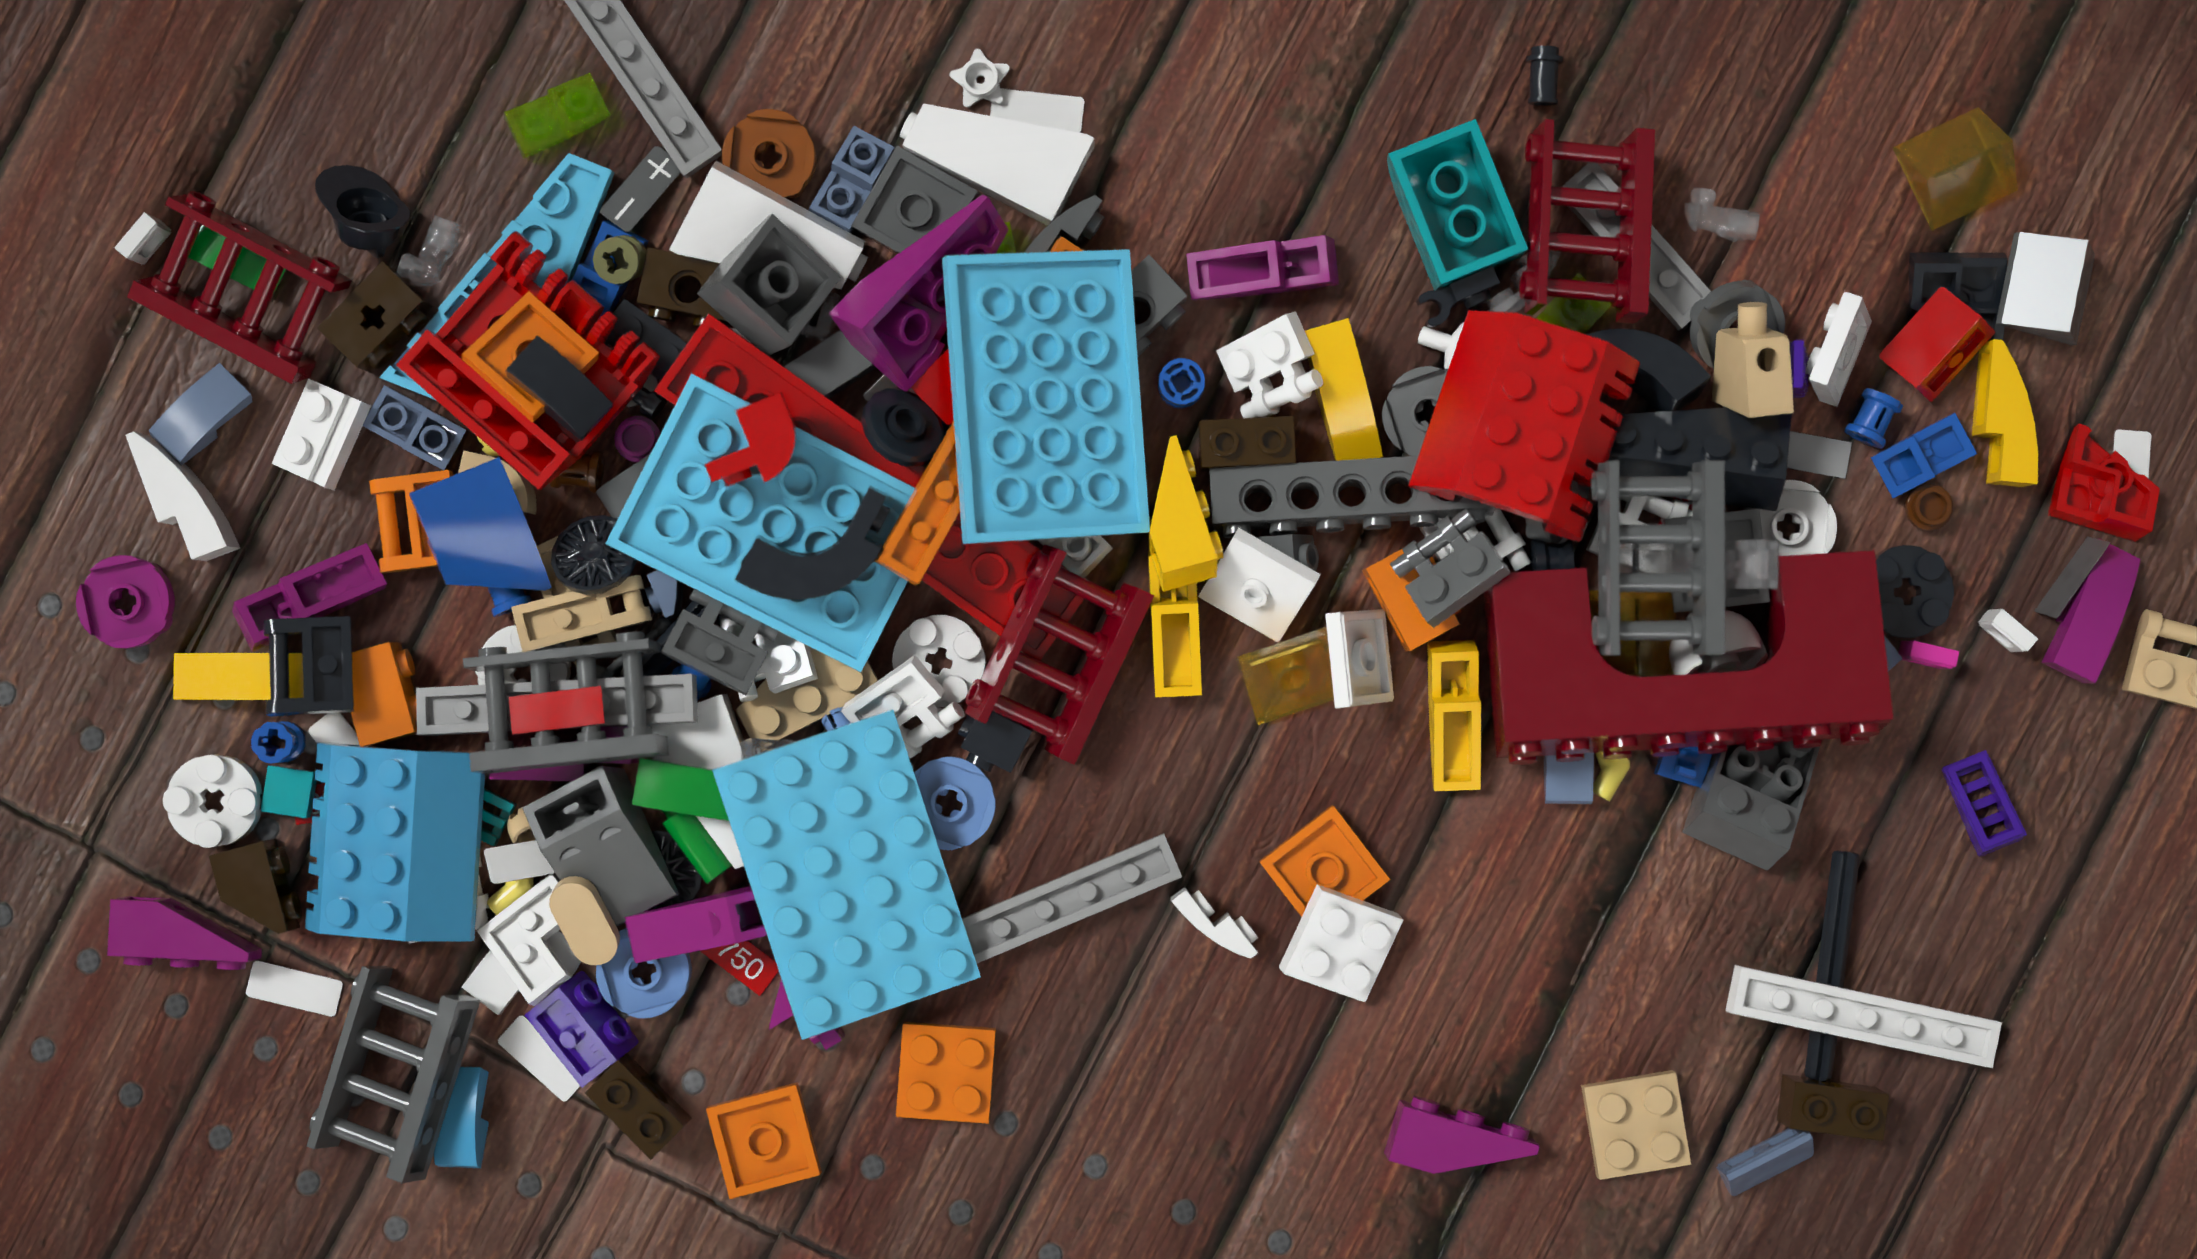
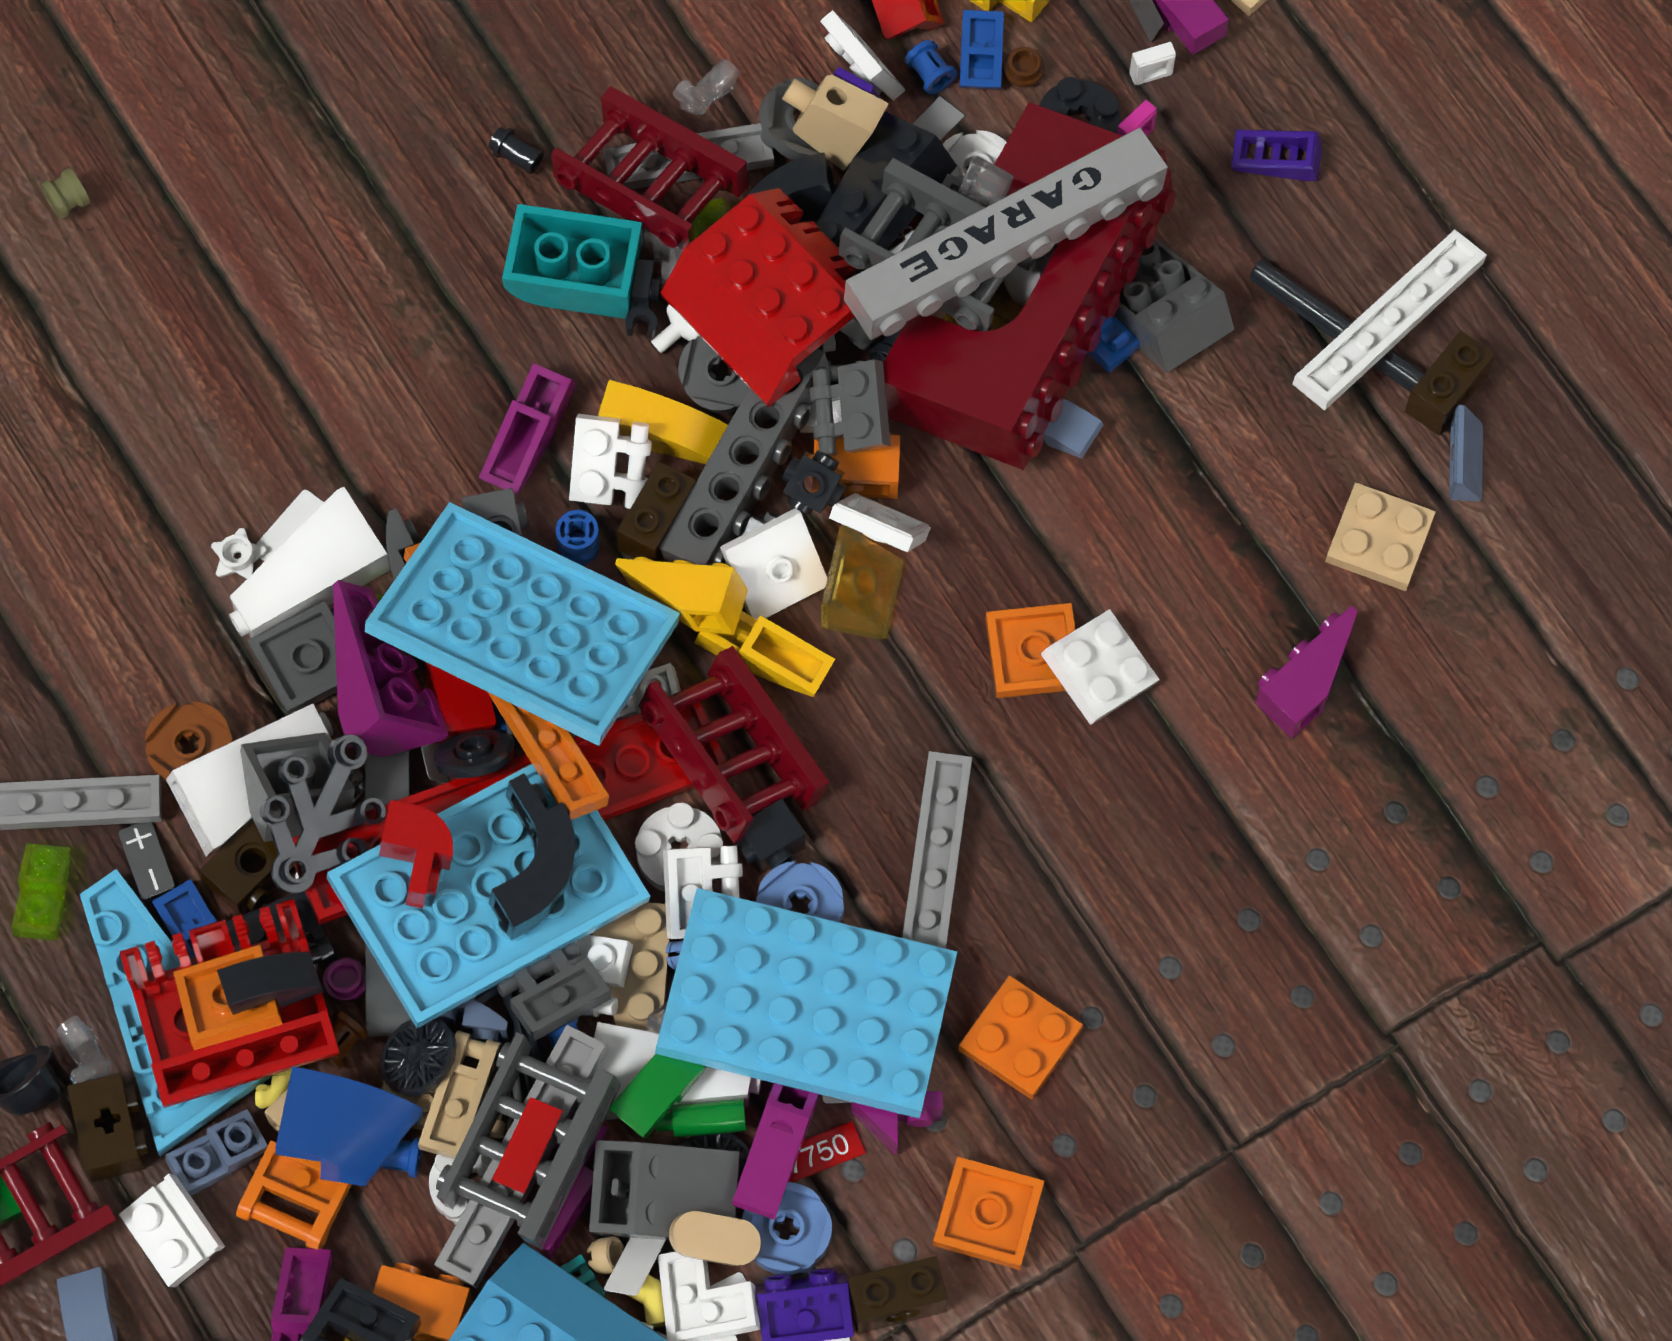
camera: 65 degrees left, 20 degrees down
(628, 255) = (195, 906): olive wheel -> none
(736, 333) = (316, 818): none -> plant
(851, 178) = (247, 690): sand blue slope -> none
(1225, 931) = (1039, 749): white slope -> none
(1354, 577) = (825, 470): none -> black brick
(1454, 715) = (970, 485): yellow slope -> none
(1610, 776) = (1087, 397): light yellow arm -> none
(1703, 625) = (1005, 234): none -> light grey brick

